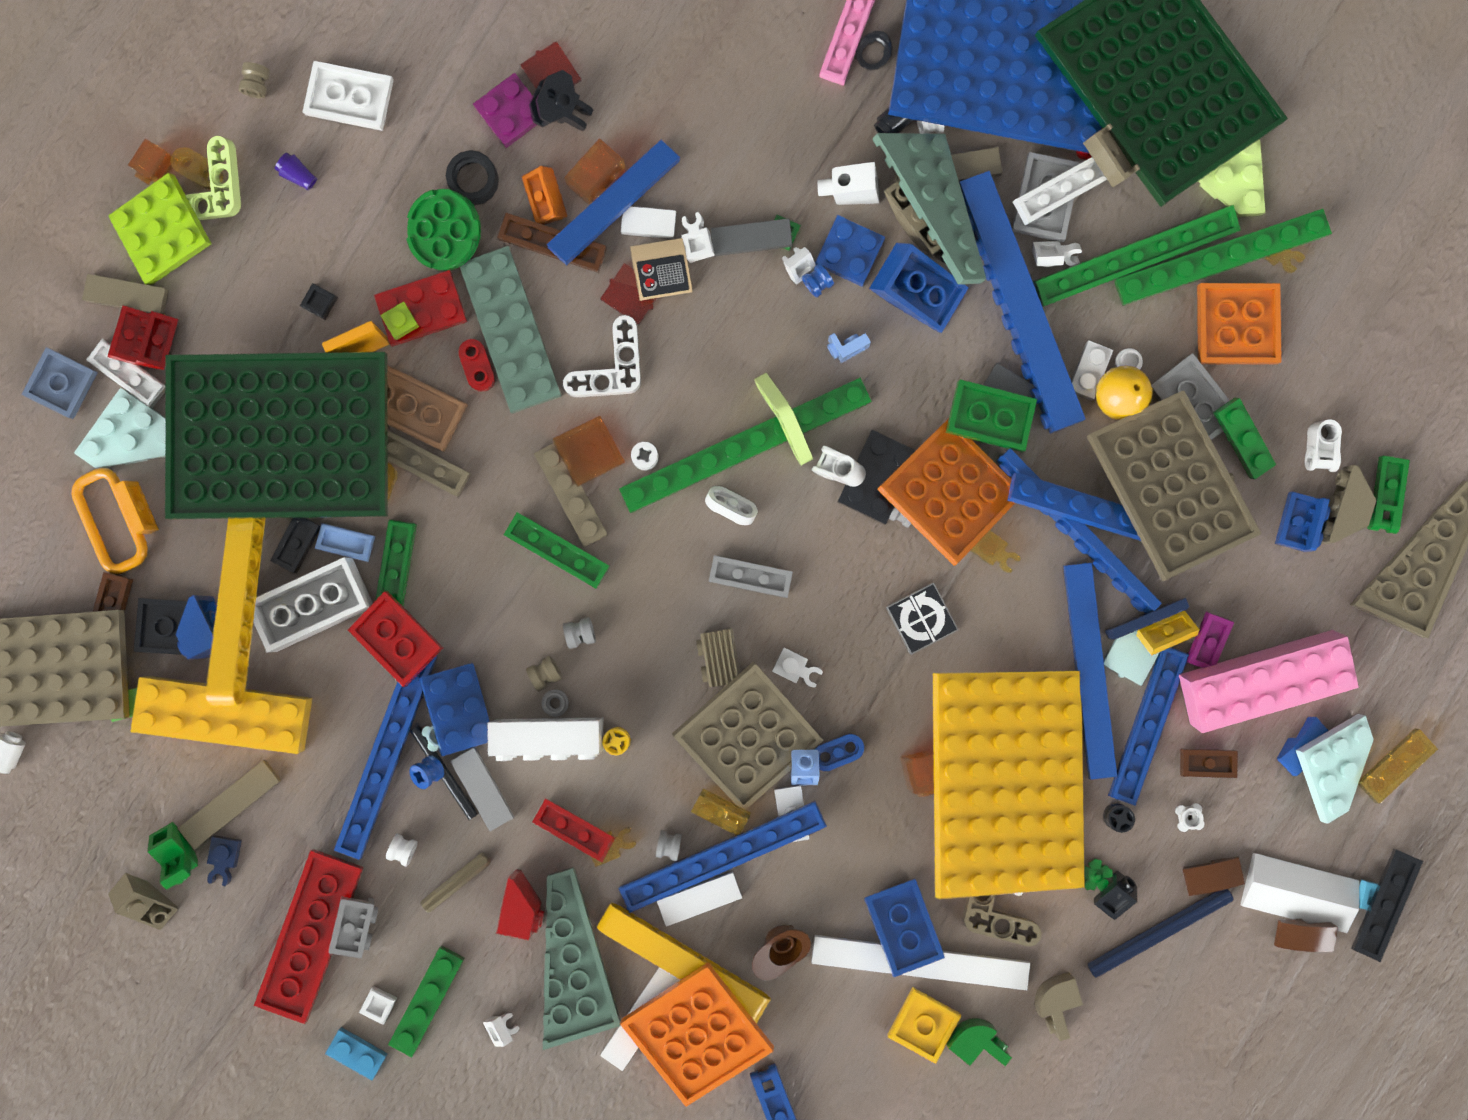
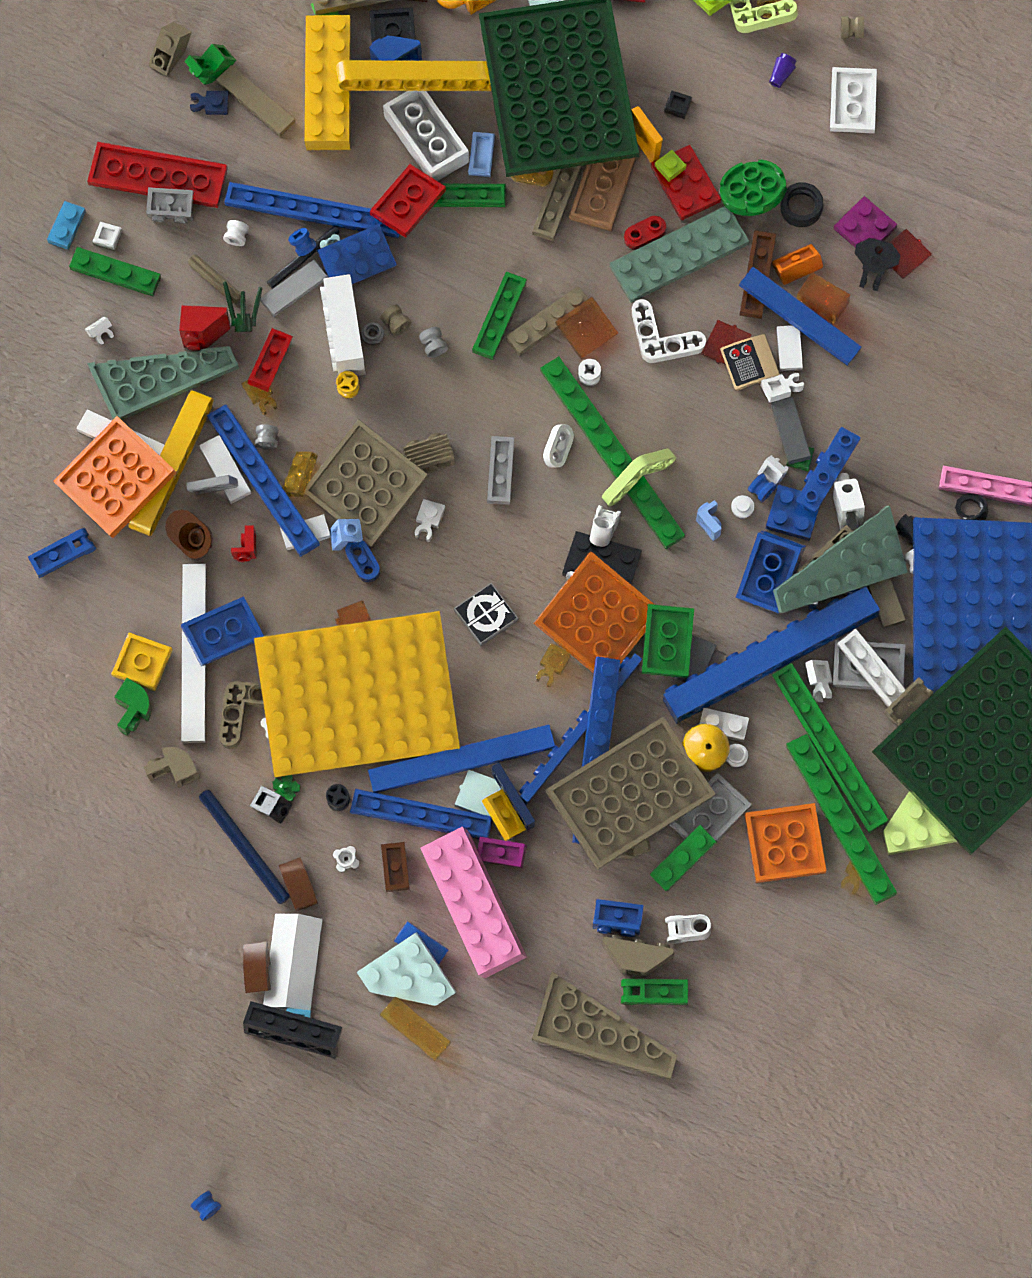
camera: 85 degrees right, 15 degrees down
(295, 544) = (474, 116): black plate -> none
(517, 856) = (243, 322): none -> dark green plant
(722, 918) = (212, 484): none -> light grey tile
(796, 882) = (248, 545): none -> red bracket
(812, 202) = (828, 468): none -> blue bracket
(835, 307) = (742, 506): none -> white plate

